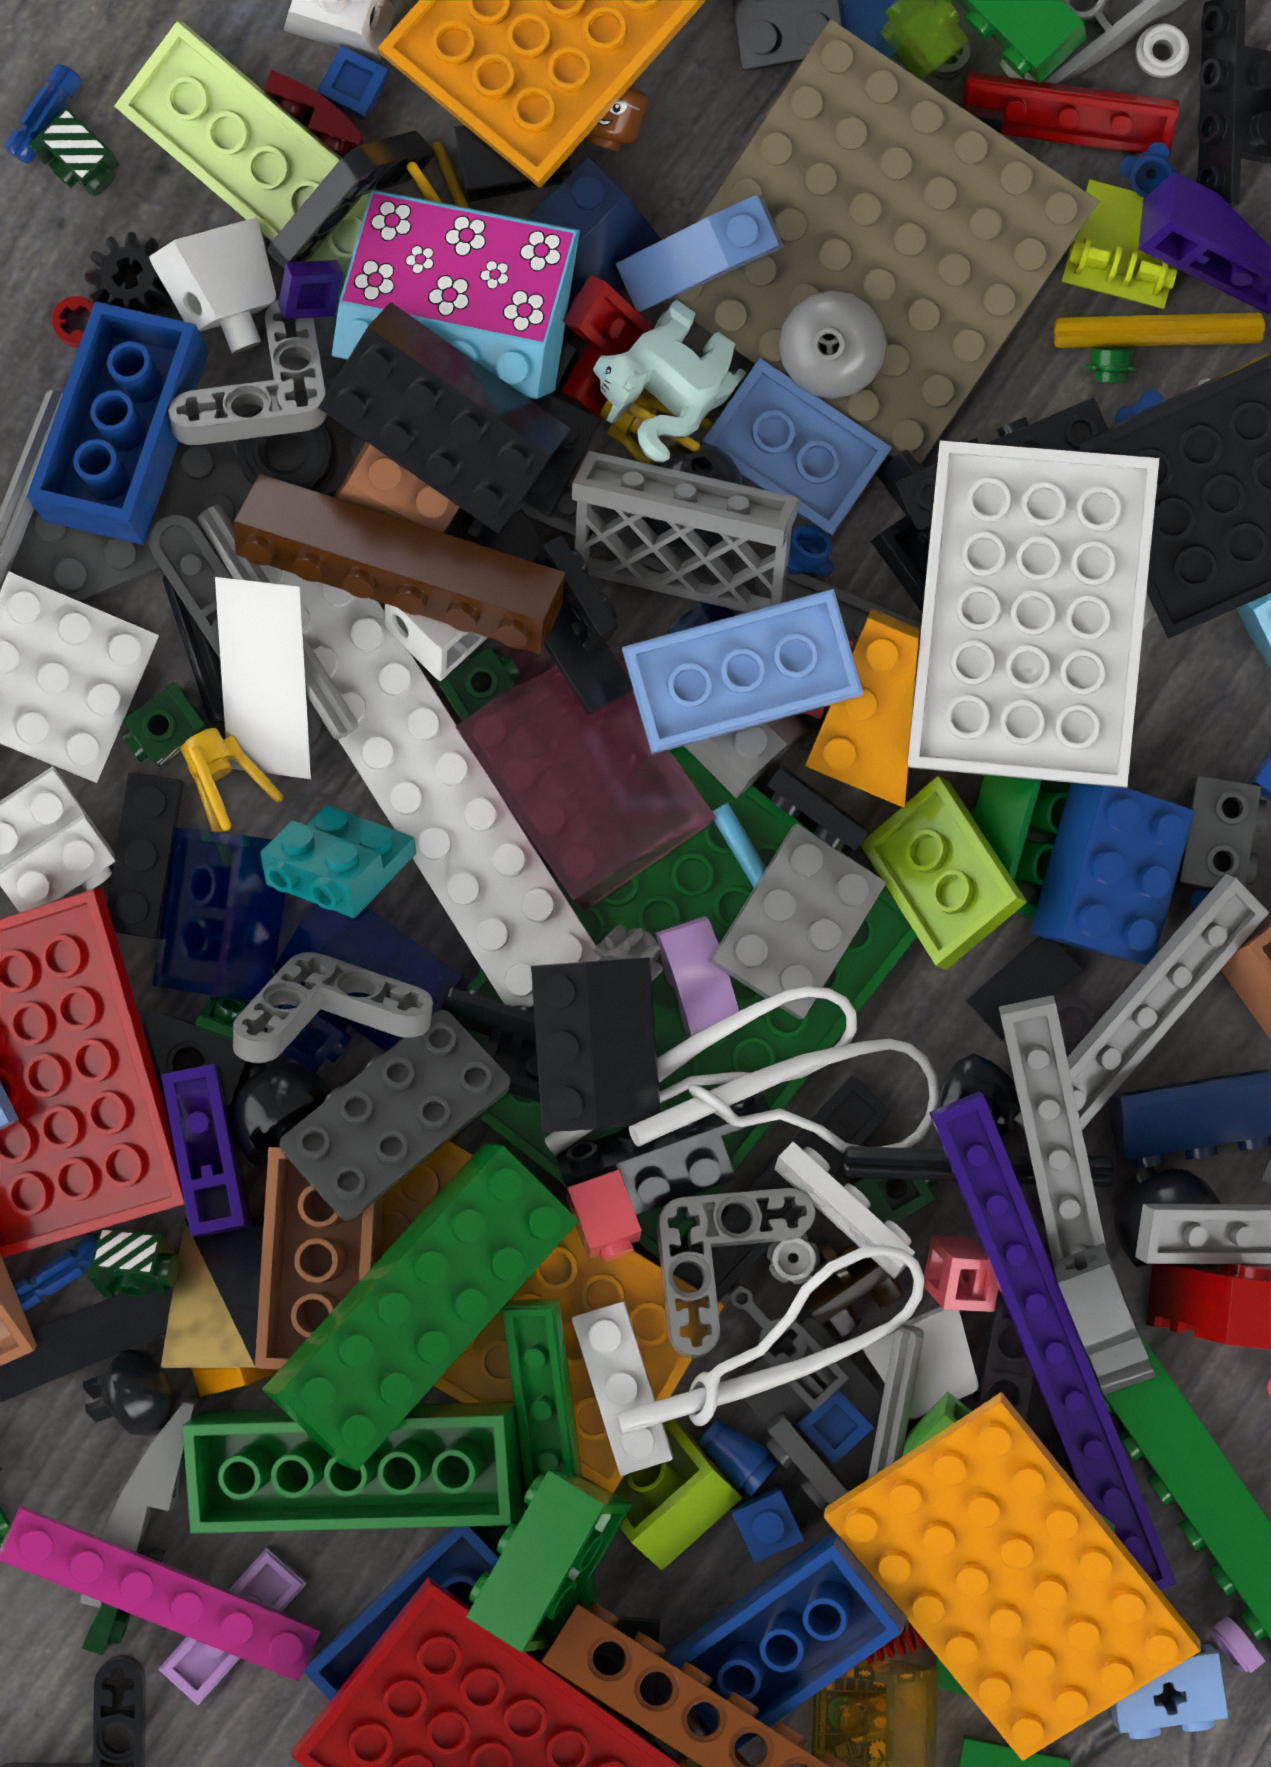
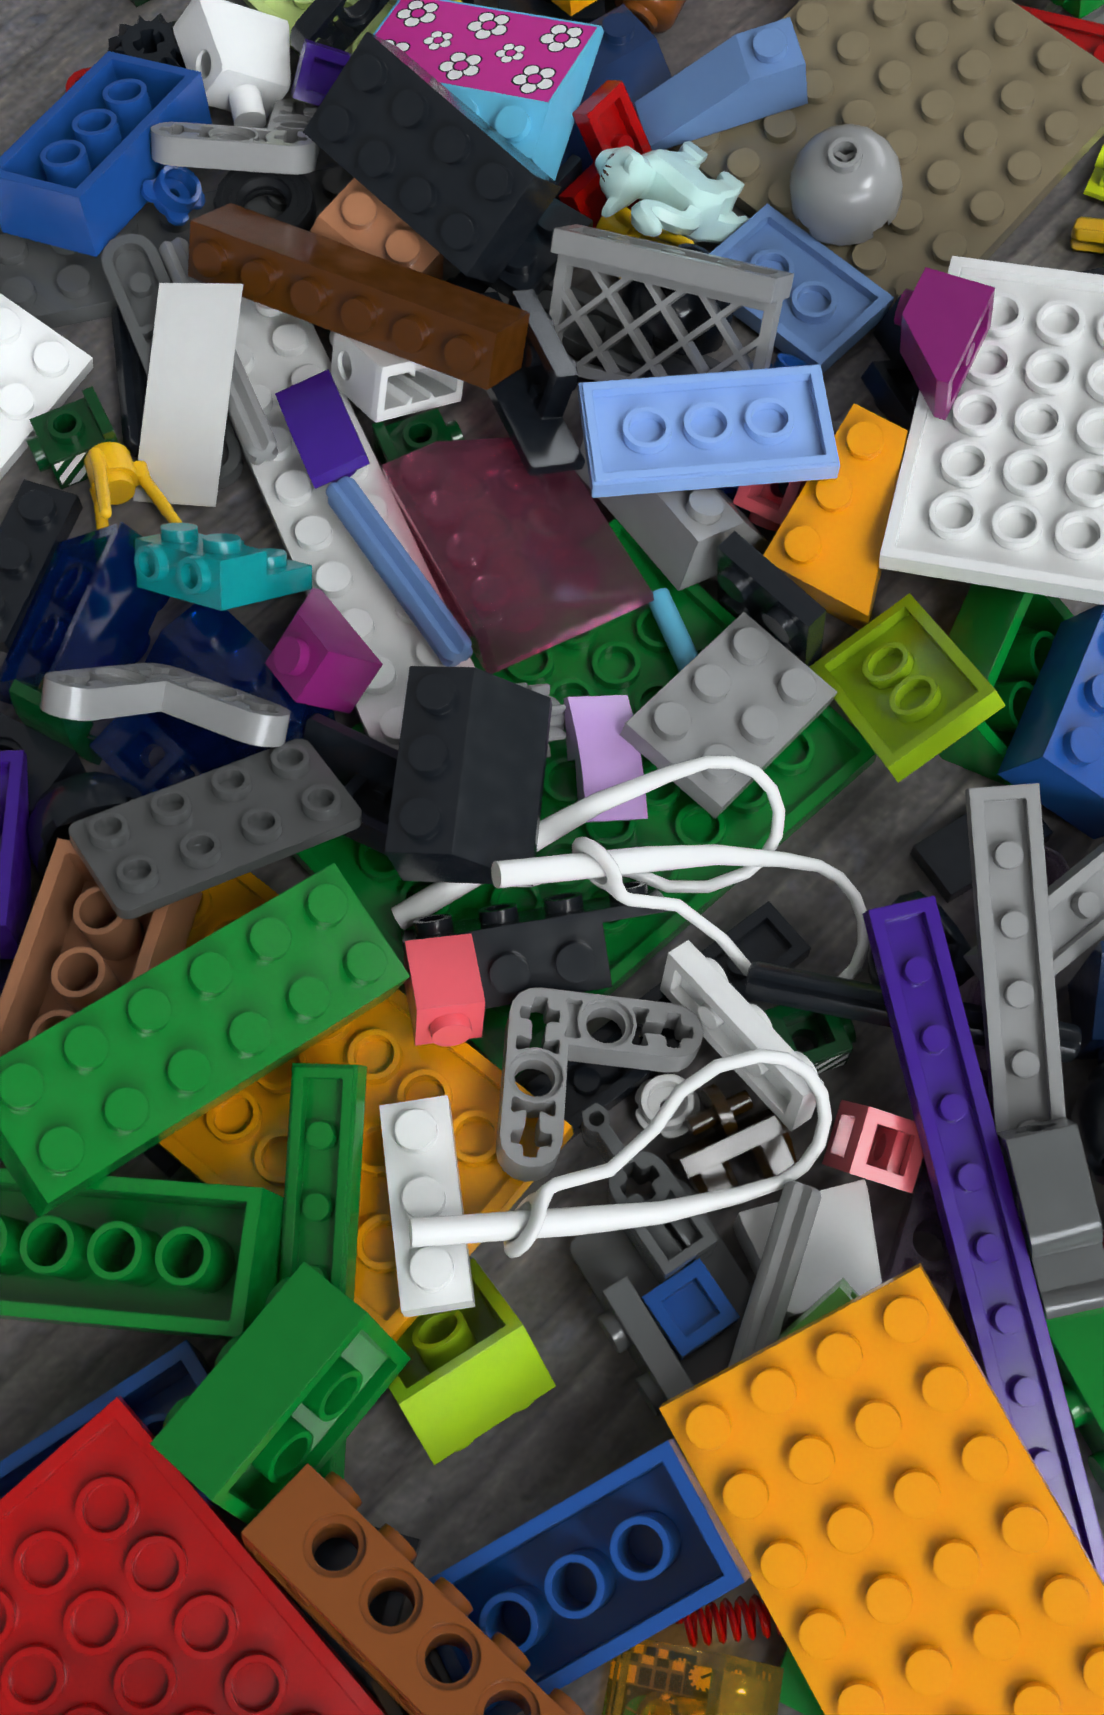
camera: 10 degrees right, 20 degrees down
(200, 469) = (174, 193): none -> blue plate
(395, 703) = (322, 429): none -> dark purple slope
(439, 928) = (323, 657): none -> magenta slope
(492, 836) = (399, 572): none -> medium blue axle
(738, 1457) = (563, 1339): blue cone -> none
(767, 1523) = (582, 1425): blue brick -> none
(938, 547) = (942, 333): none -> magenta slope

